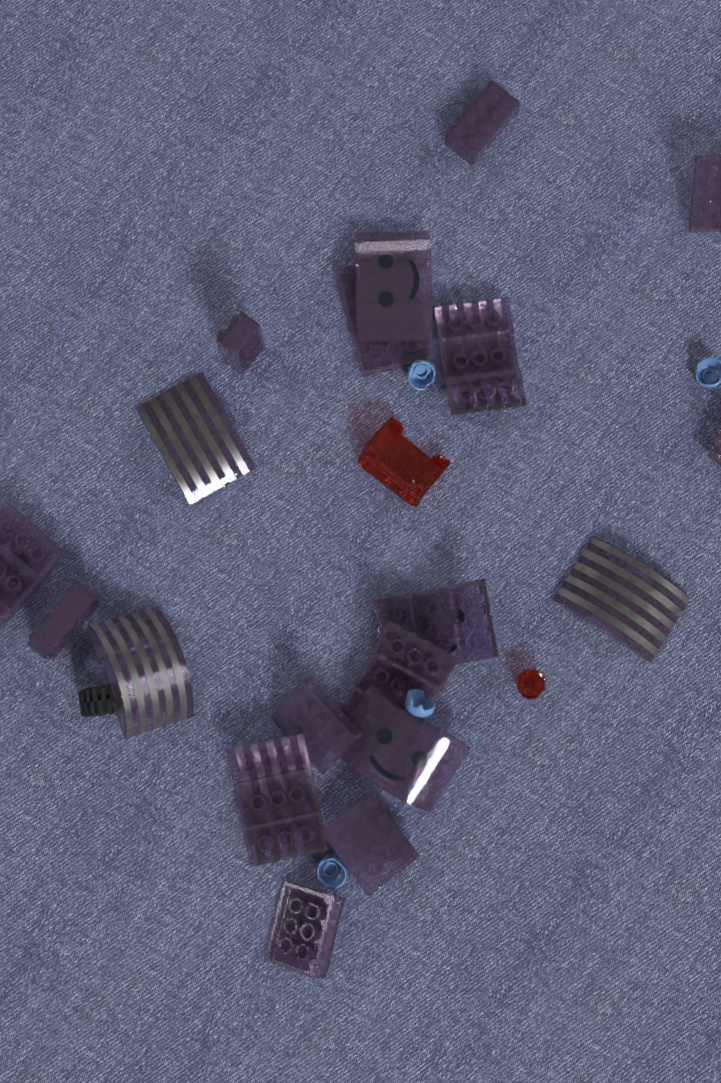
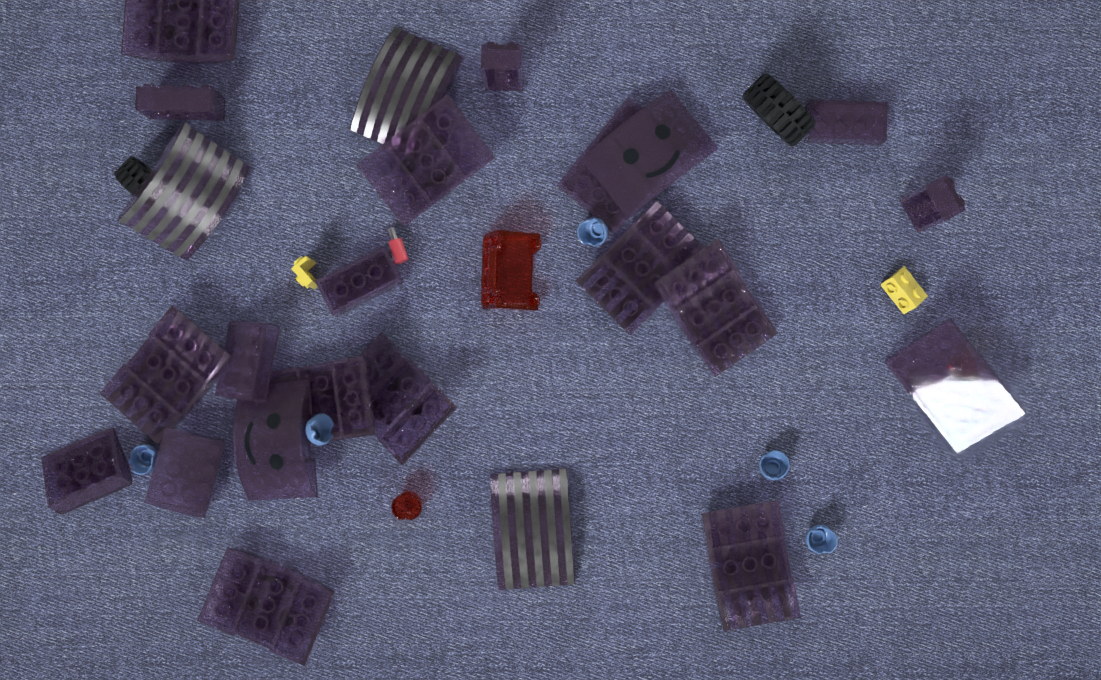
camera: 55 degrees right, 5 degrees up
(265, 459) = (425, 160): none -> clear purple slope
(284, 626) = (301, 269): none -> light yellow bracket
(314, 537) = (397, 247): none -> coral piece
(321, 585) = (359, 281): none -> clear purple brick
(437, 161) = (779, 109): none -> black tyre
(528, 857) = (267, 604): none -> clear purple slope
(553, 326) = (715, 308): none -> clear purple slope
(598, 103) = (933, 204): none -> clear purple brick
(645, 177) = (904, 290): none -> light yellow bracket

